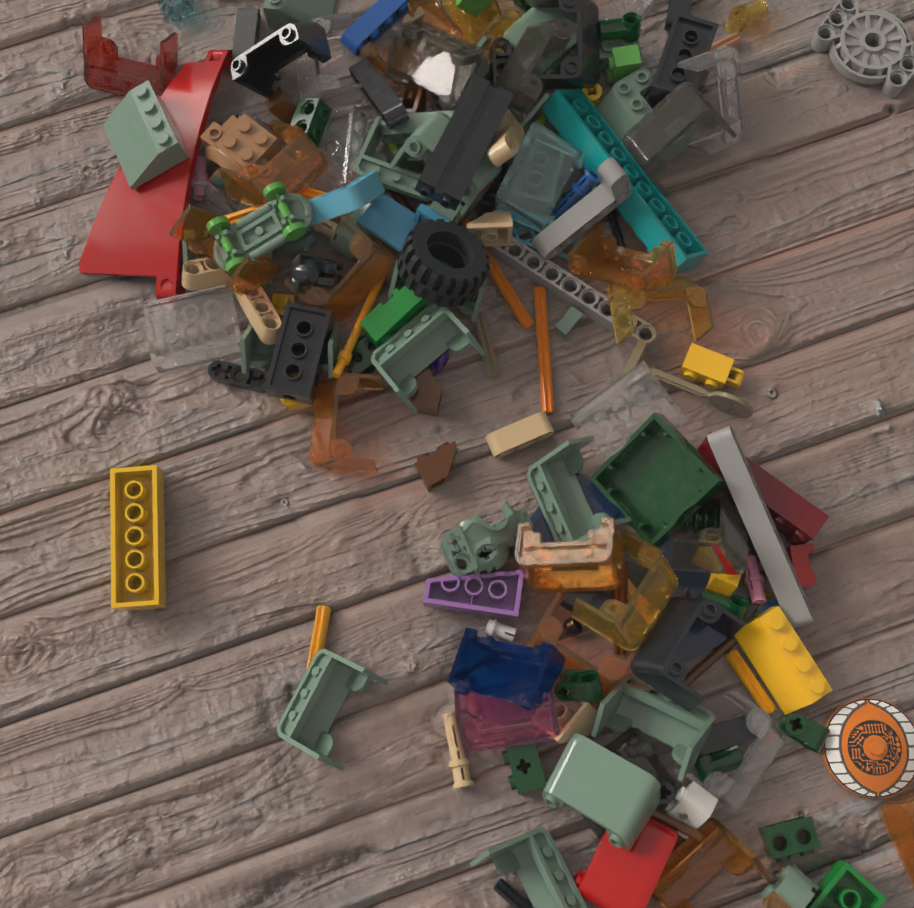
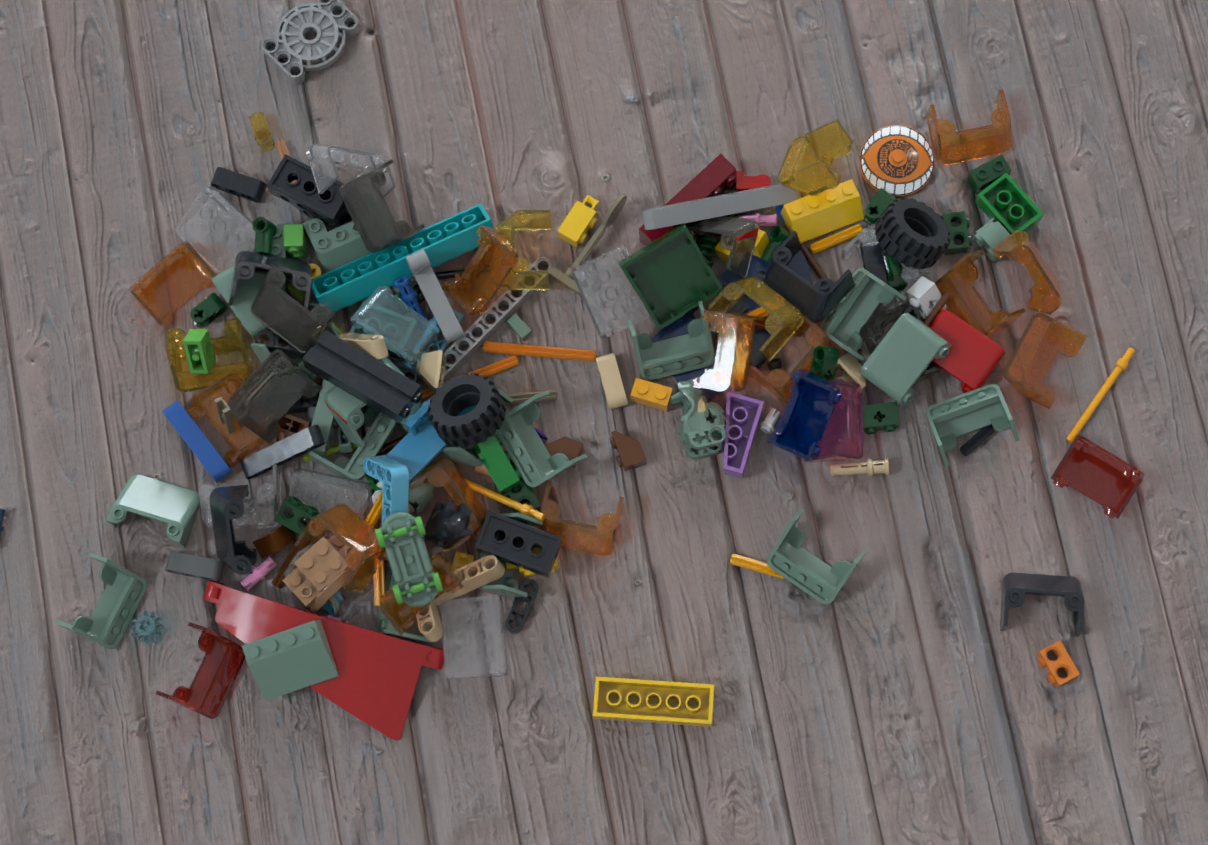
camera: 80 degrees left, 0 degrees up
(246, 99) = (258, 573): none -> bright pink pin
(509, 481) = (651, 394): none -> light orange brick
(773, 779) = (912, 233): none -> black tyre
(848, 634) = (811, 157): none -> clear yellow windscreen
(880, 873) = (987, 173): none -> dark green brick

